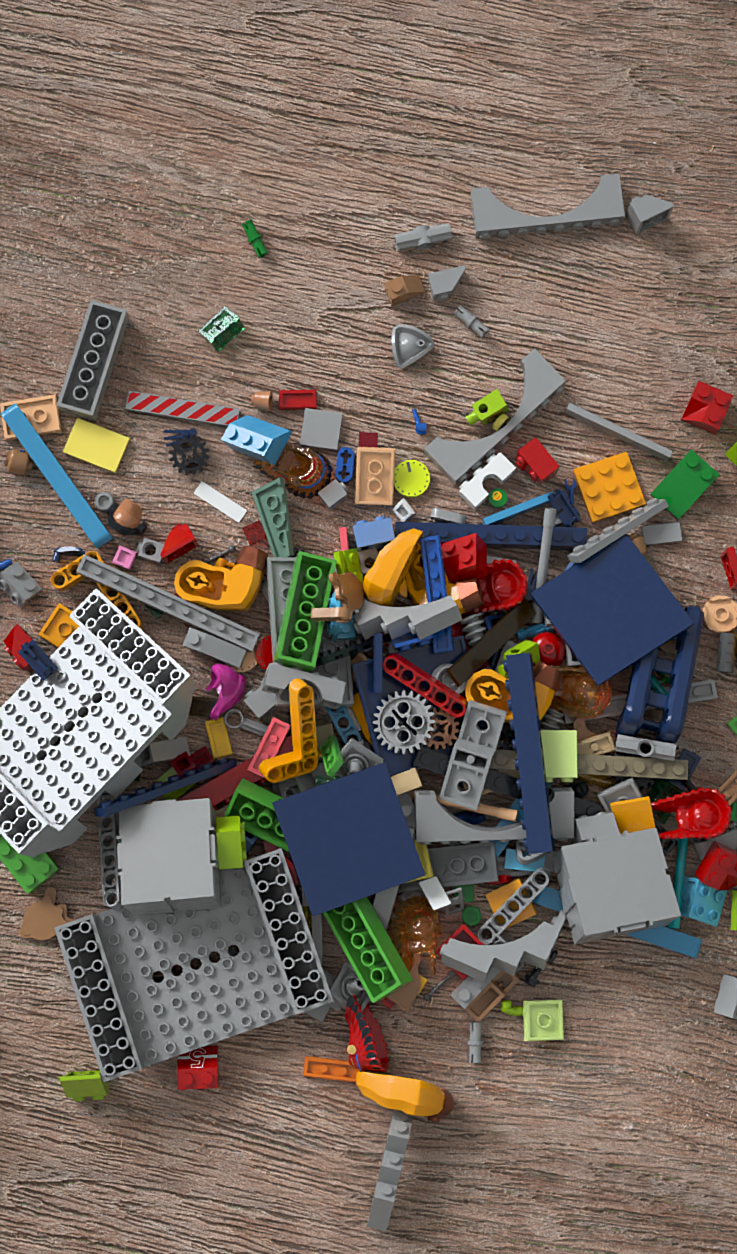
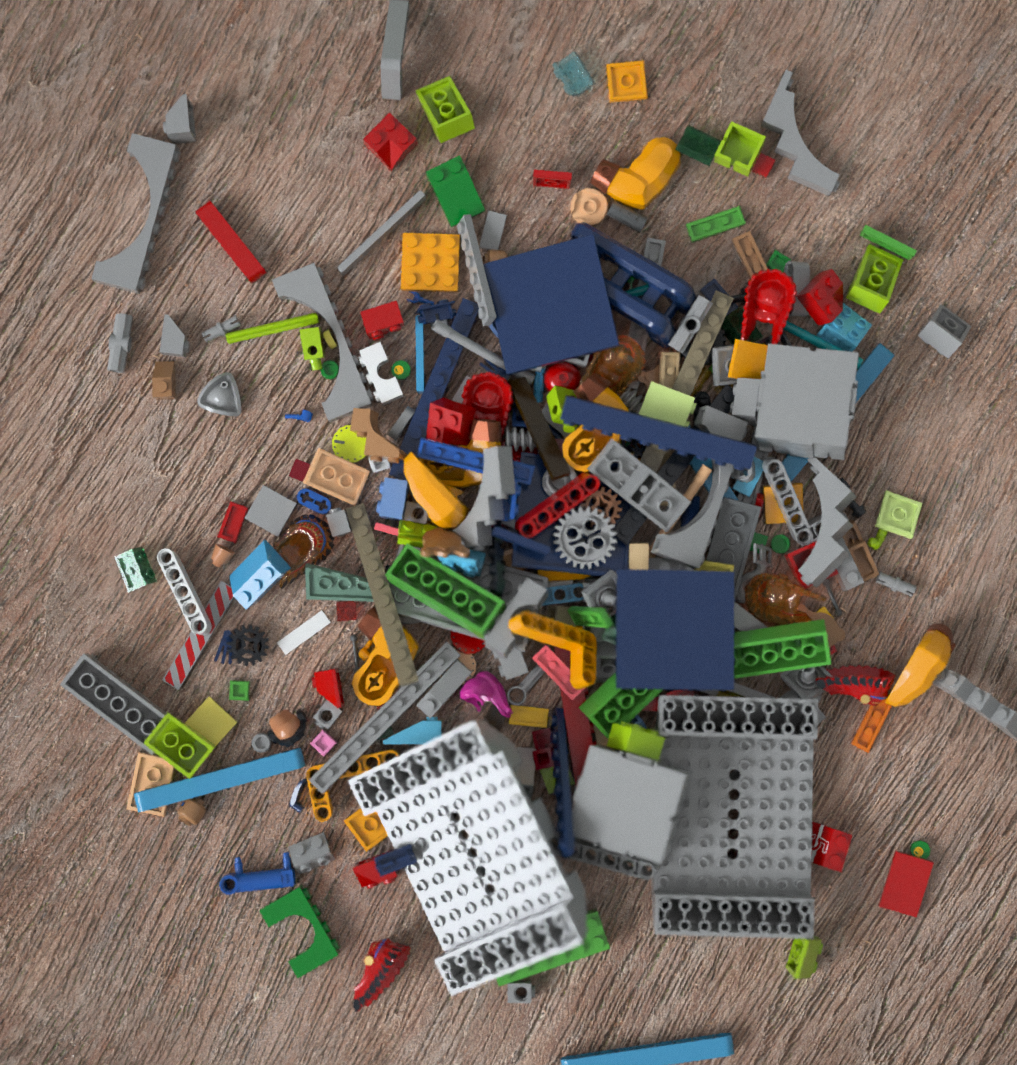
camera: 70 degrees left, 5 degrees up
(43, 917) = (636, 939): medium nougat tile -> none
(74, 426) = (179, 745): none -> lime slope
(145, 463) = (239, 690): none -> bright green tile
(165, 638) = (418, 733): none -> medium azure slope
(190, 1159) = (906, 883): none -> red tile
(218, 370) = (177, 586): none -> white beam
(227, 1161) = (920, 849): none -> green tile
(255, 238) = (58, 504): green pin -> none
(279, 557) = (382, 595): none -> dark tan plate
(336, 614) = (460, 566): medium nougat piece -> none
(416, 501) = (377, 447): none -> medium nougat arch
(434, 893) = (750, 569): white sticker -> none
(472, 433) = (330, 370): none -> green tile
(490, 367) = (272, 328): none -> lime axle
(555, 299) = (230, 242): none -> red beam

